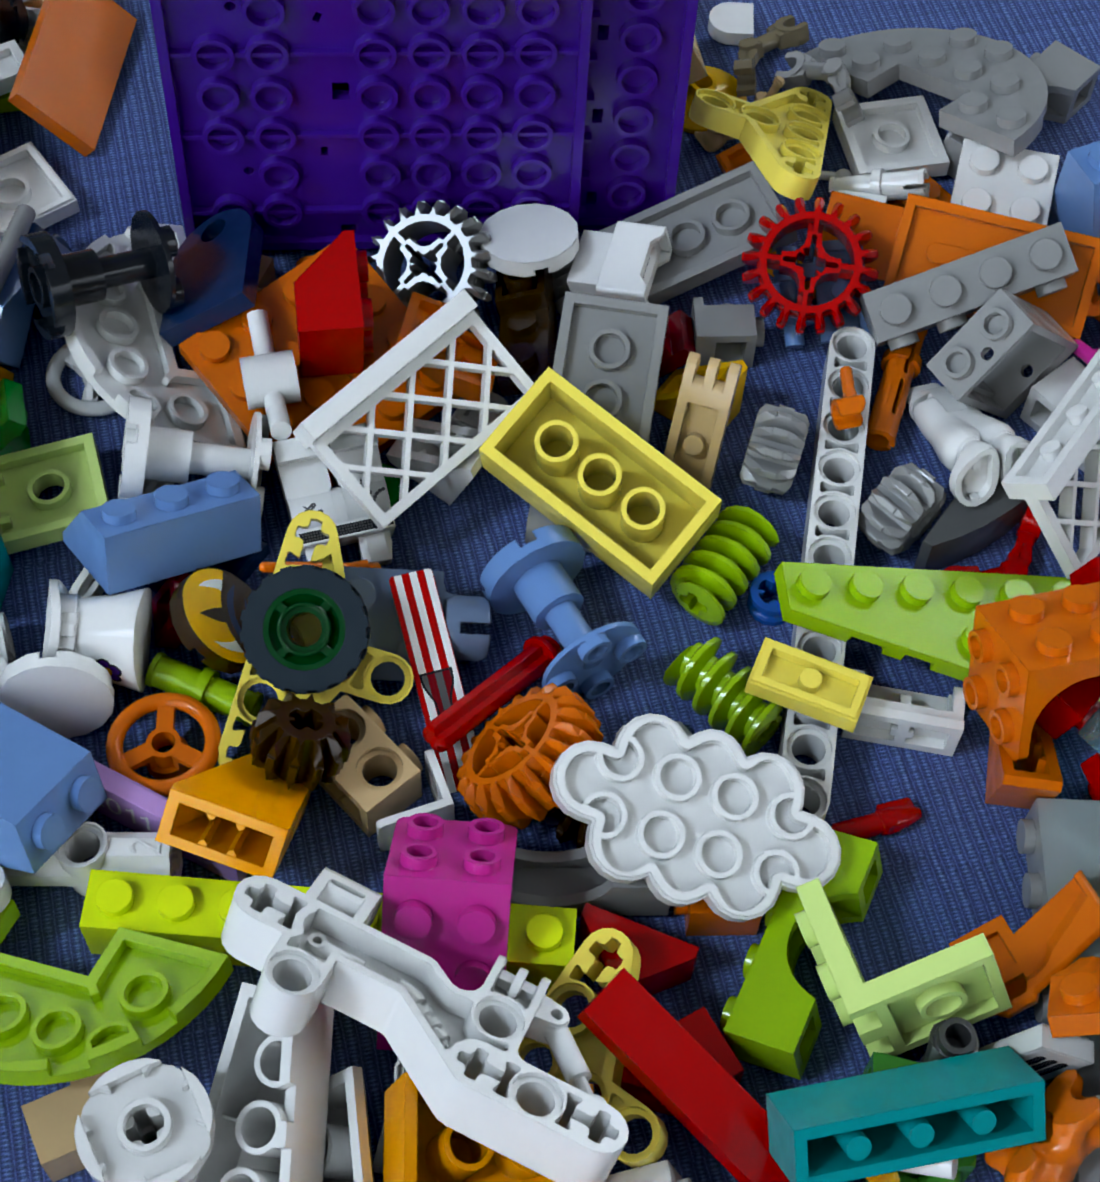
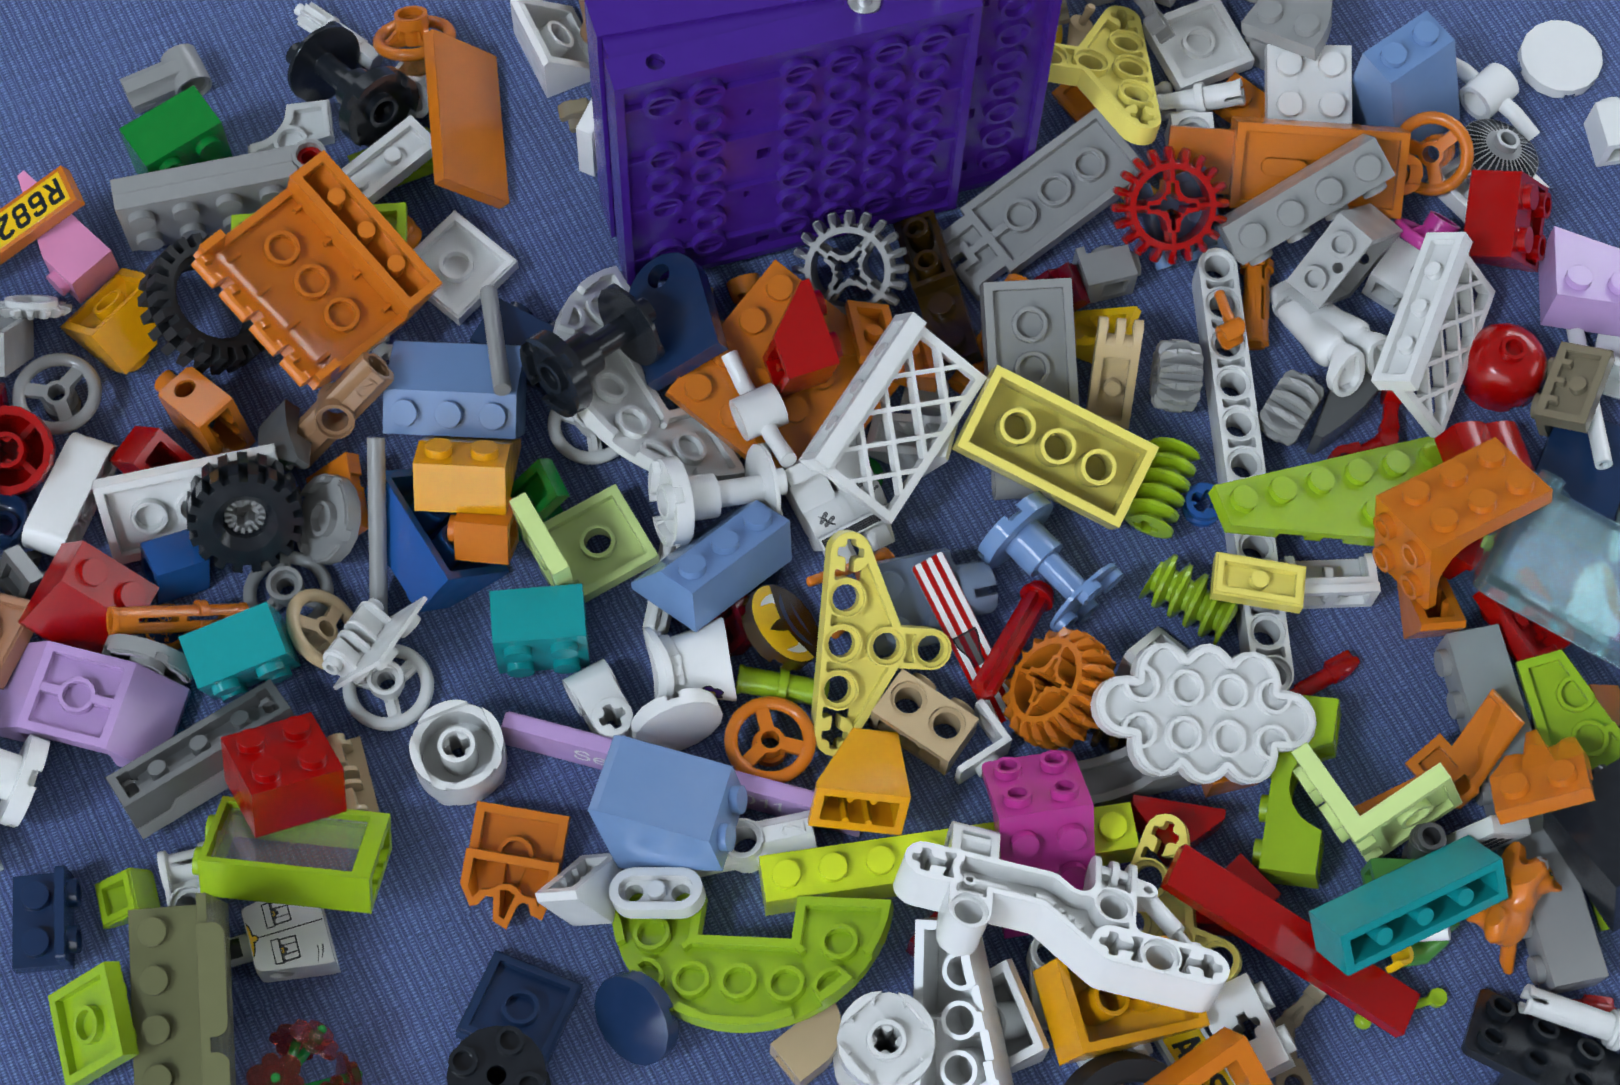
camera: 15 degrees left, 10 degrees up
(268, 624) = (889, 648): black wheel -> none
(300, 741) = (889, 720): dark brown gear -> none
(530, 239) = (929, 226): white tile -> none
(620, 262) = (1007, 234): white piece -> none

